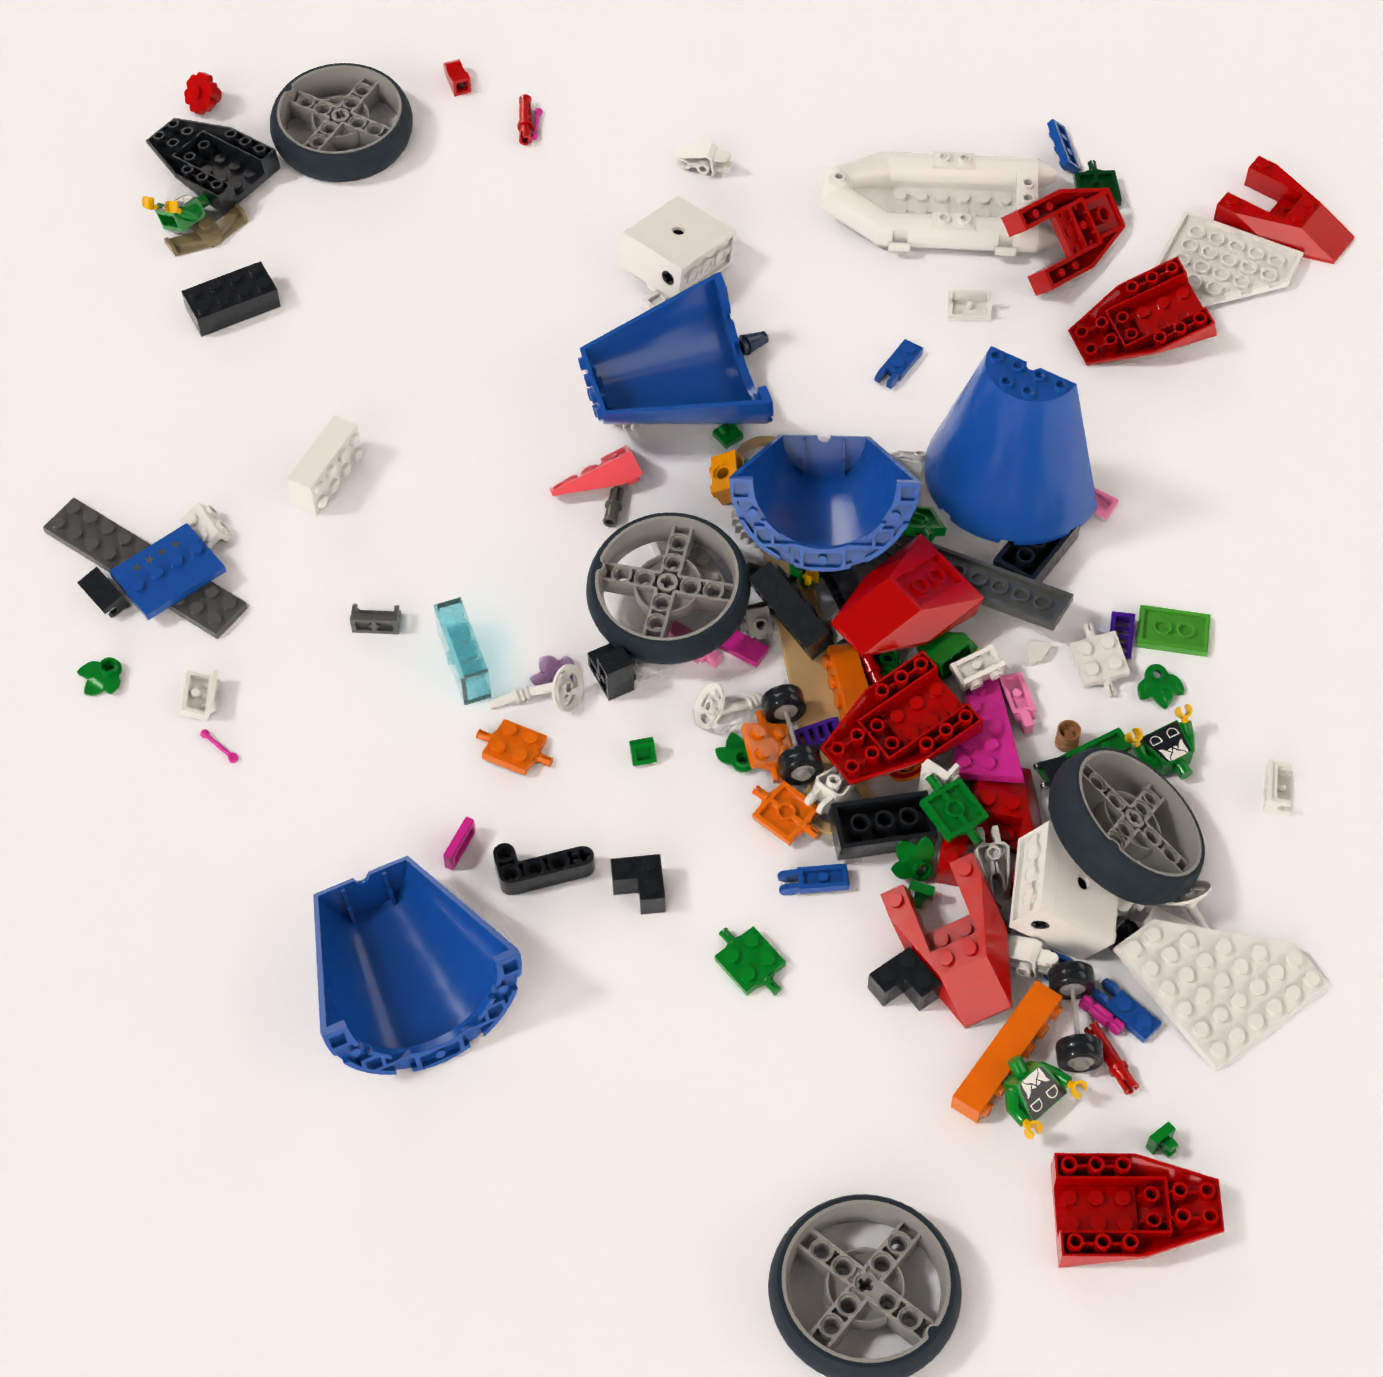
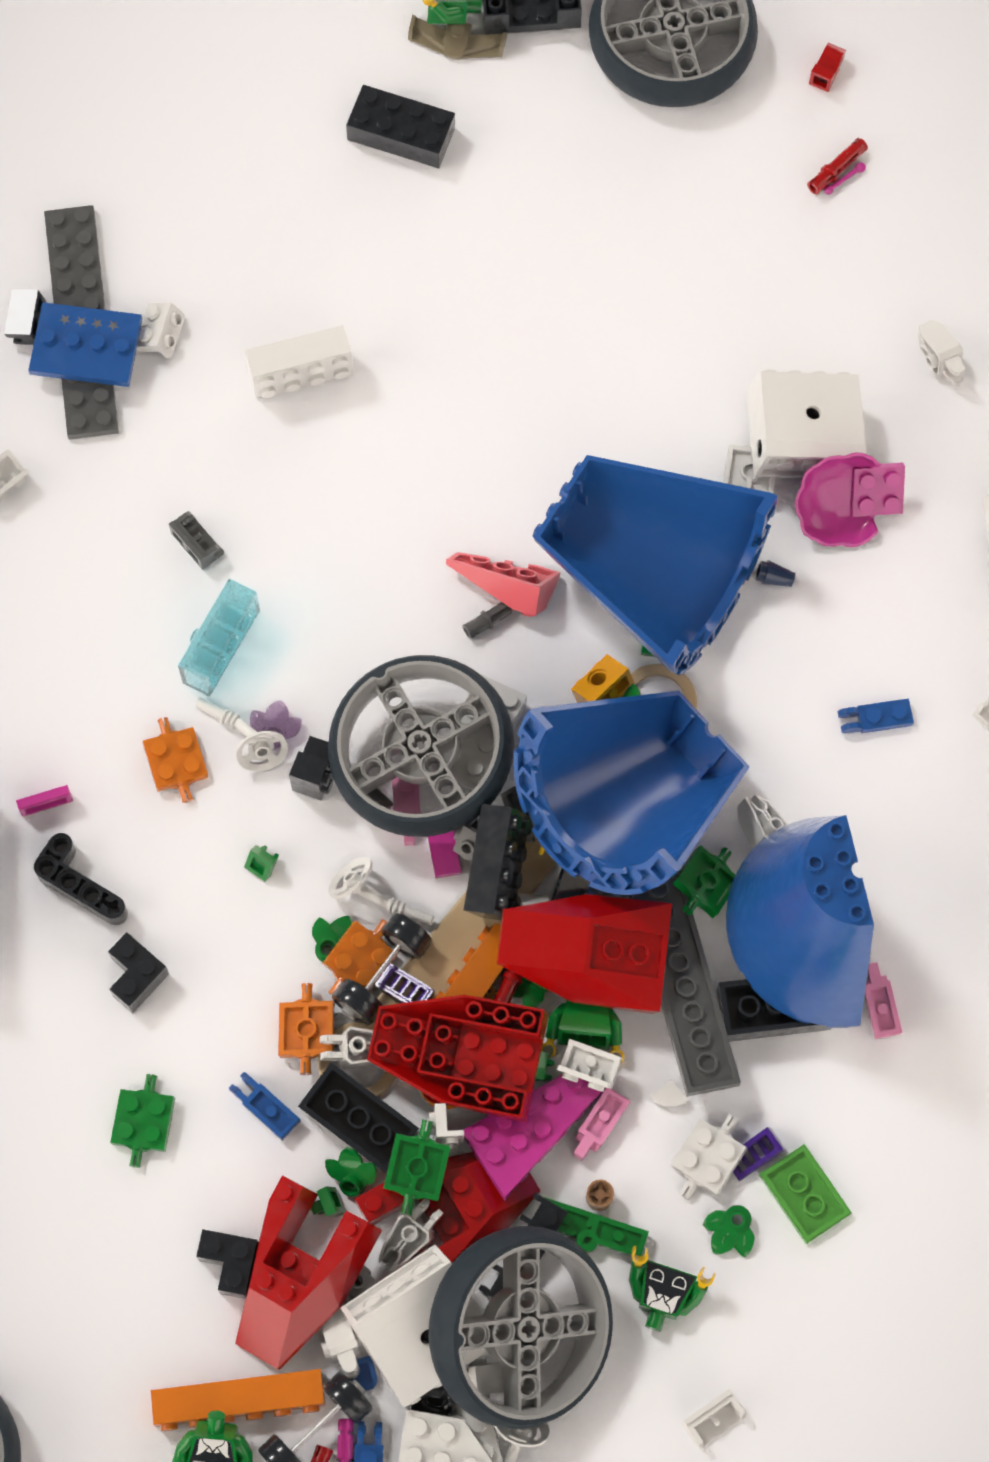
camera: 45 degrees right, 15 degrees up
(744, 261) = (844, 496): none -> dark pink animal

